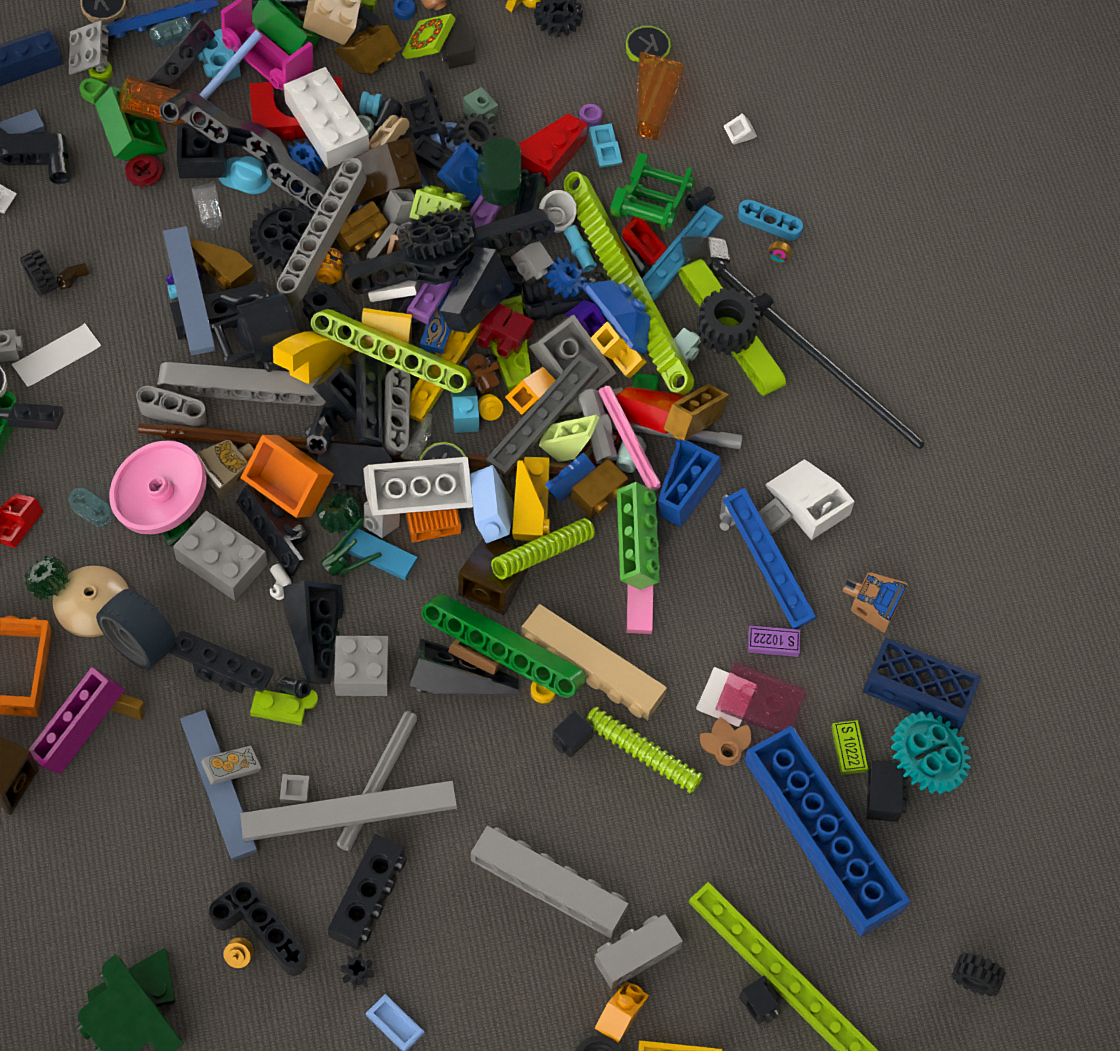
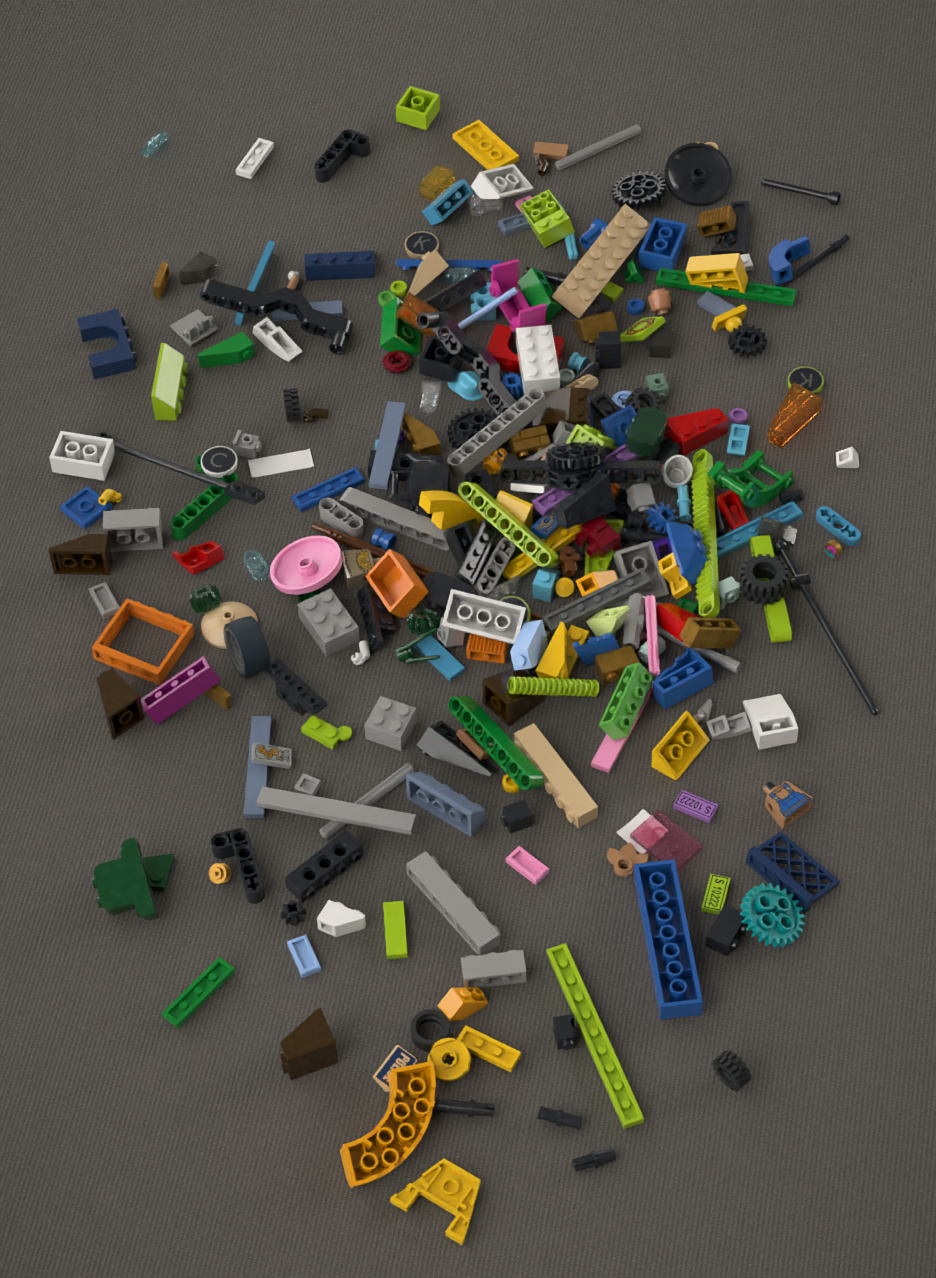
camera: 30 degrees right, 10 degrees down
(88, 48) = (396, 270): light grey hinge -> none
(130, 41) = (427, 271): none -> tan slope
(134, 372) = (328, 489): none -> blue tile
(235, 418) = (382, 539): none -> blue wheel
(299, 688) = (339, 721): black pin -> none
(313, 620) = (372, 678): black wedge -> none
(321, 430) = (435, 562): black piece -> none
(403, 76) = (608, 349): none -> black brick
(419, 958) = (340, 920): none -> white slope
(423, 114) = (614, 379): black bracket -> none
(478, 749) = (445, 803): none -> sand blue slope
(492, 943) = (395, 930): none -> lime tile
(612, 793) = (527, 865): none -> bright pink tile
(644, 750) = (563, 844): lime piece -> none
(723, 572) = (679, 747): none -> yellow slope
(769, 559) = (717, 749): blue plate -> none

